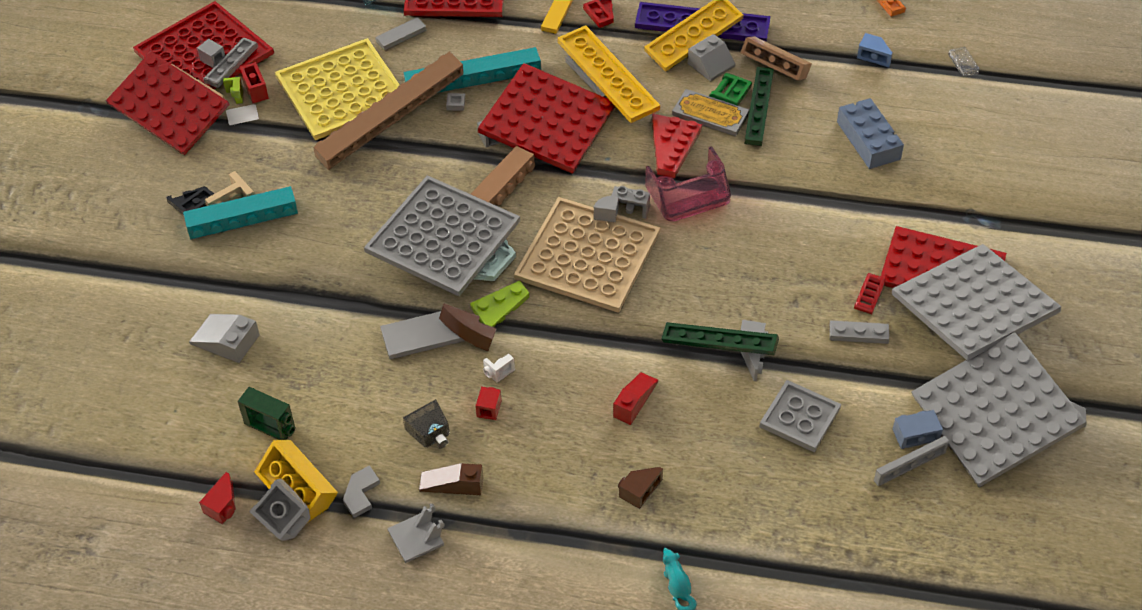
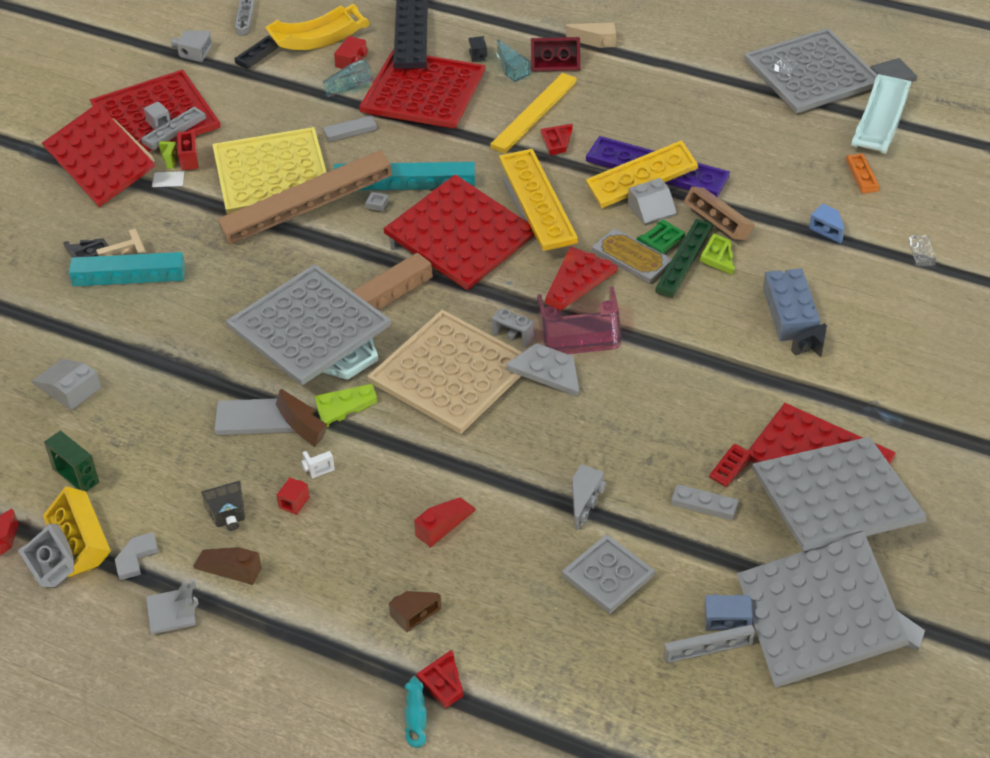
camera: 15 degrees right, 5 degrees down
(606, 208) = (483, 329): light grey brick -> none
(676, 234) = (546, 367): none -> light grey wing
(691, 546) = (442, 680): none -> red wing
(720, 338) = (550, 478): dark green plate -> none
(788, 97) = (718, 254): none -> lime wing
(899, 163) = (810, 339): none -> black slope

